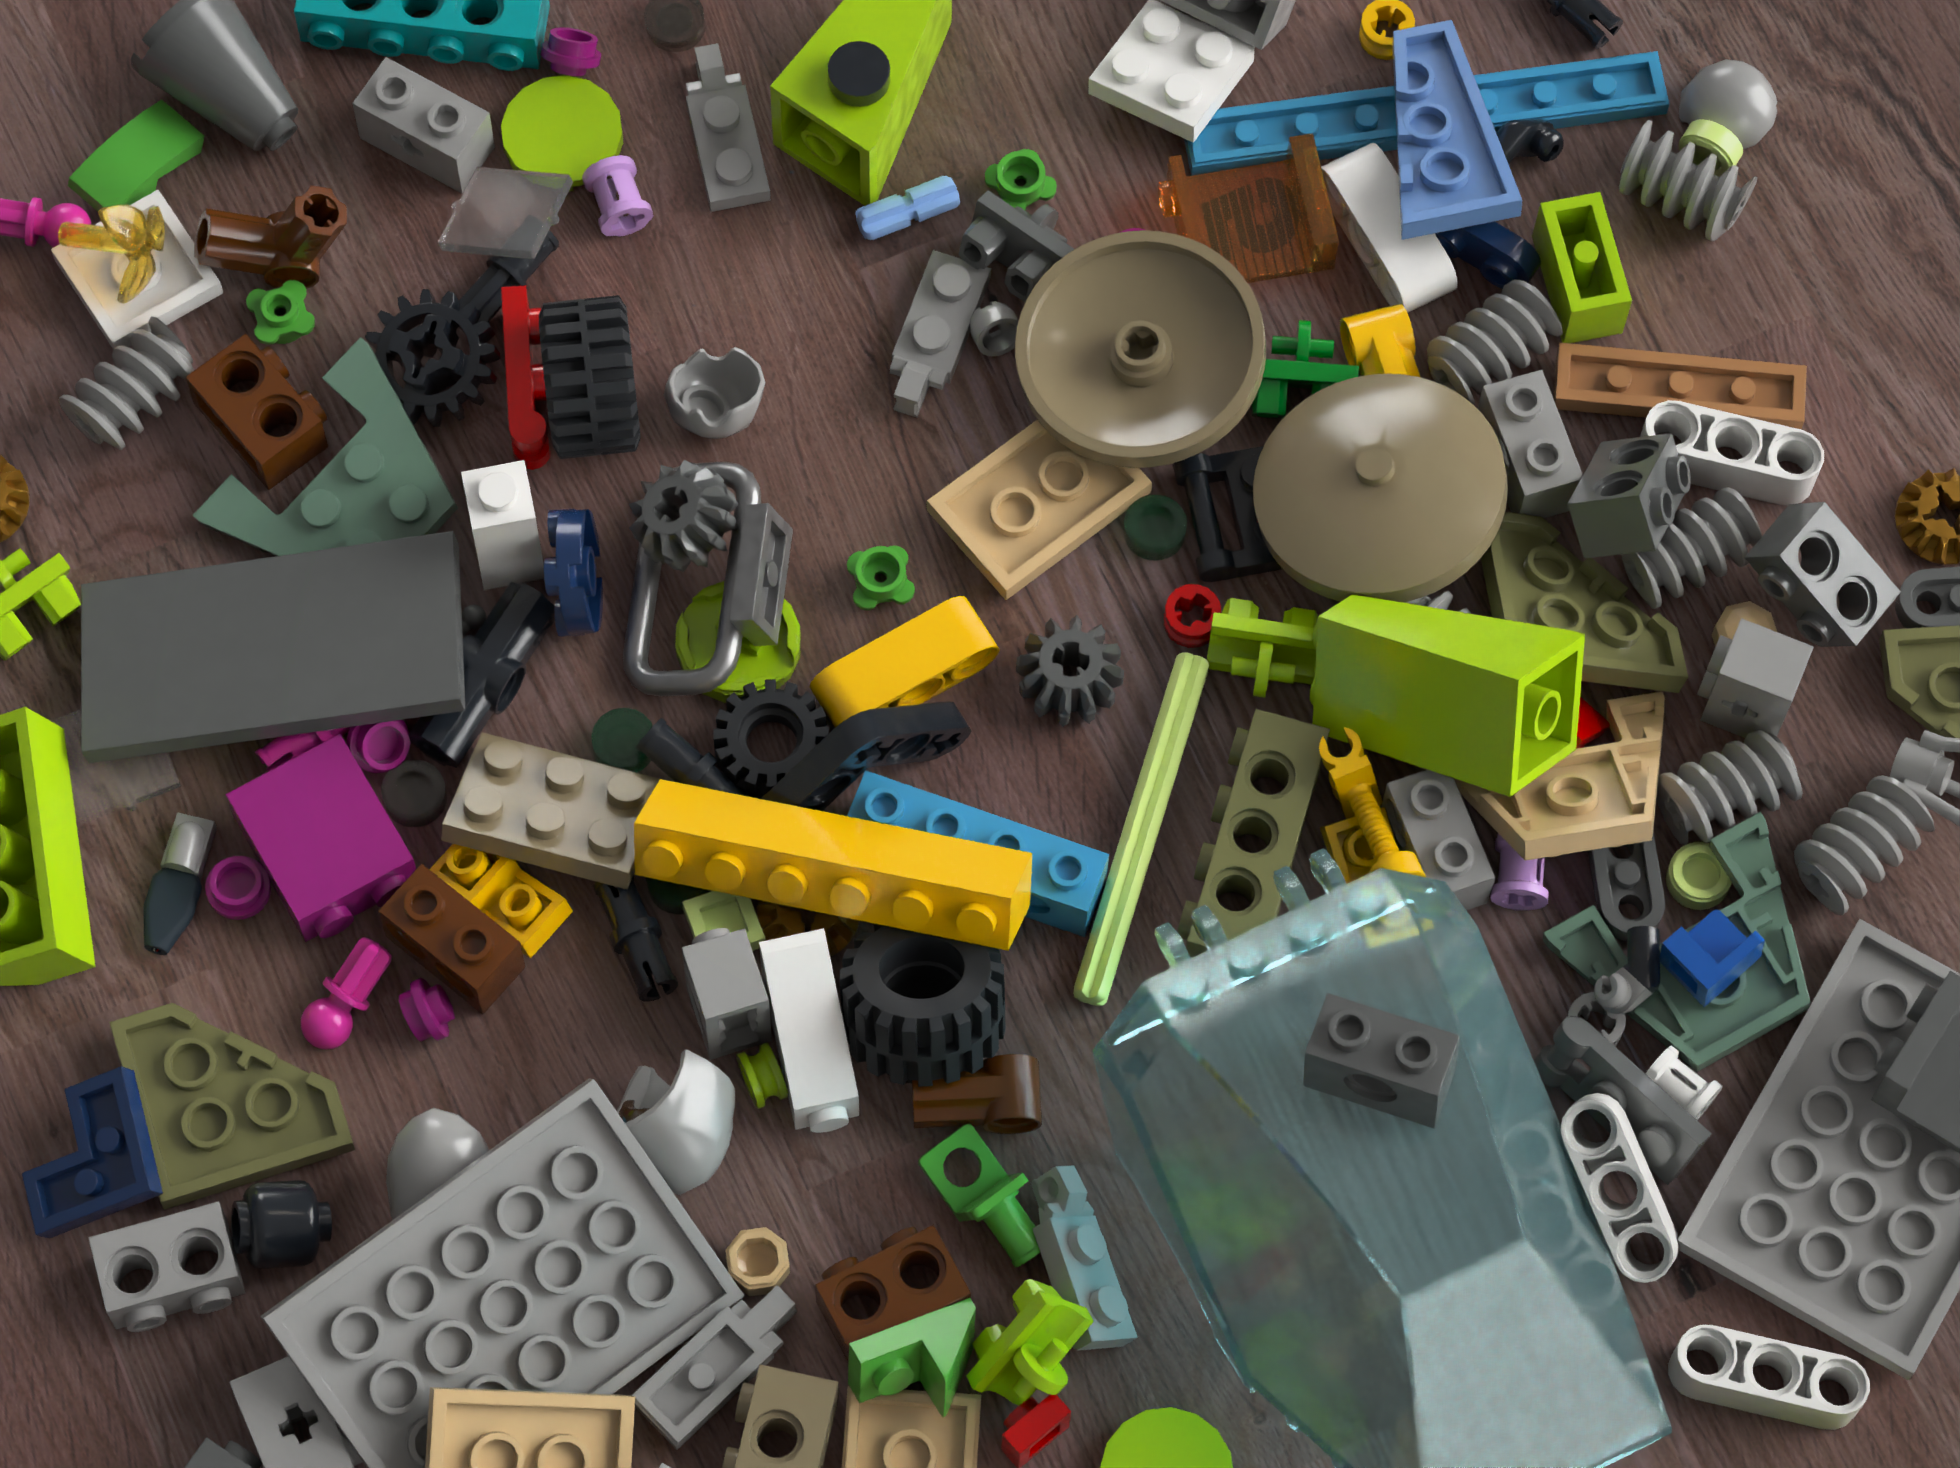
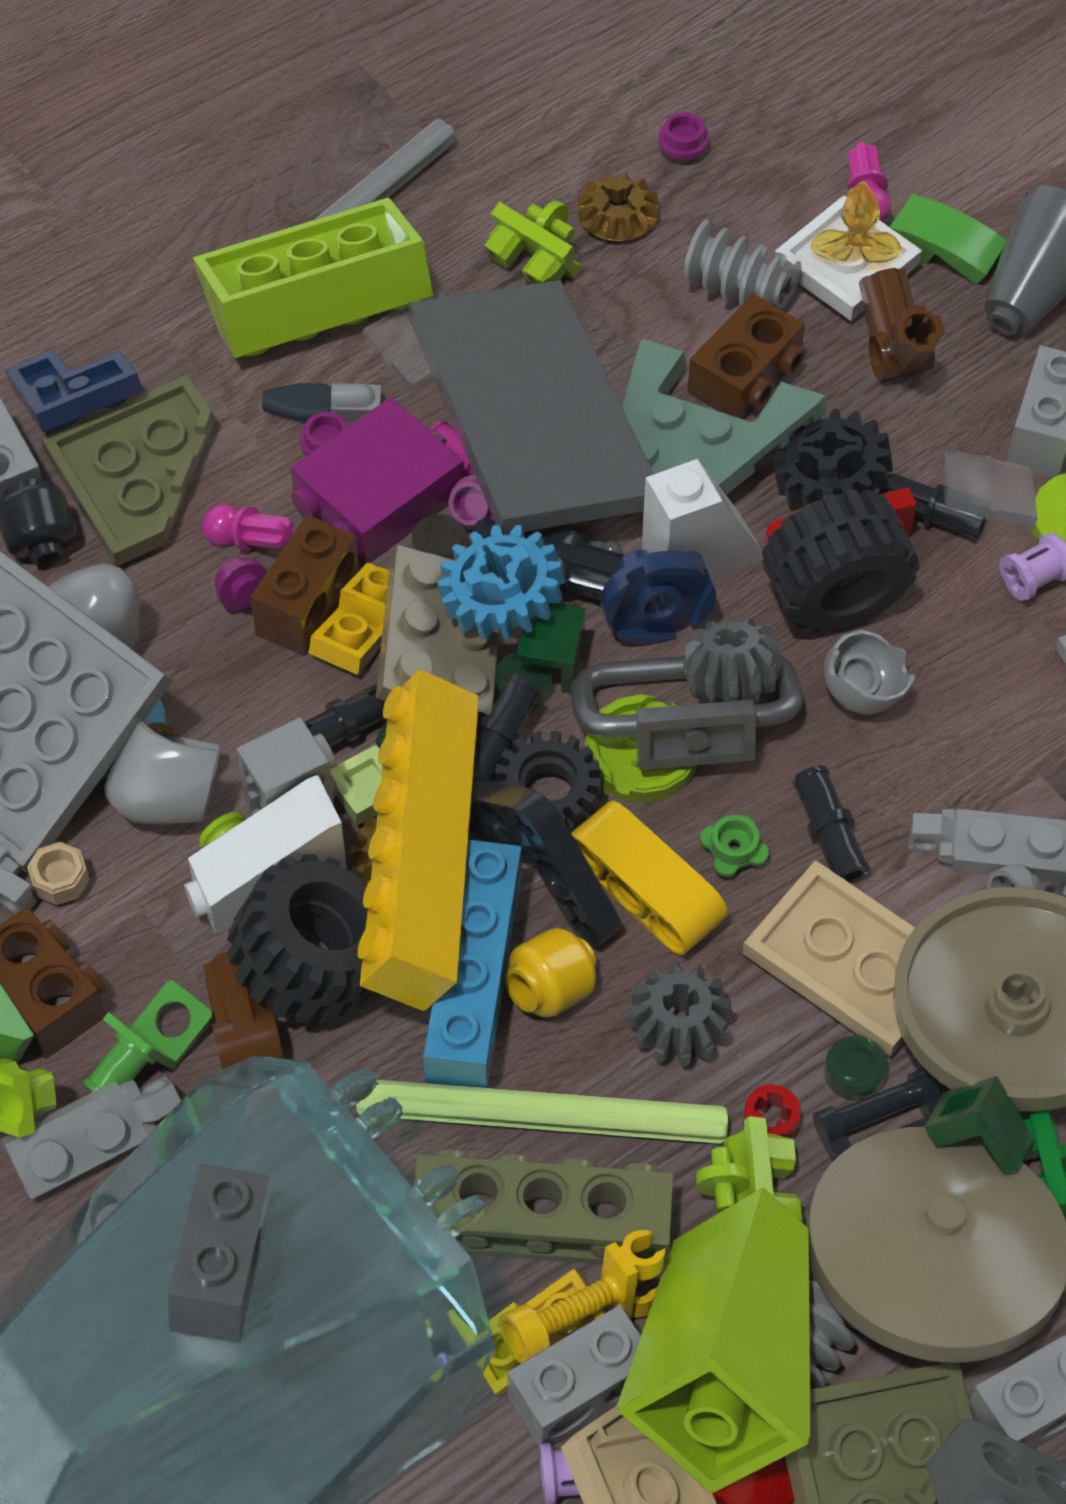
camera: 80 degrees right, 10 degrees down
(284, 328) = (844, 360): bright green plate -> none
(557, 713) = (501, 582): none -> dark azure gear
(594, 693) = (556, 641): none -> dark green panel
(882, 478) = (831, 824): none -> black pin
(998, 778) = (550, 972): none -> yellow head
(1269, 418) = (985, 1113): none -> dark green panel

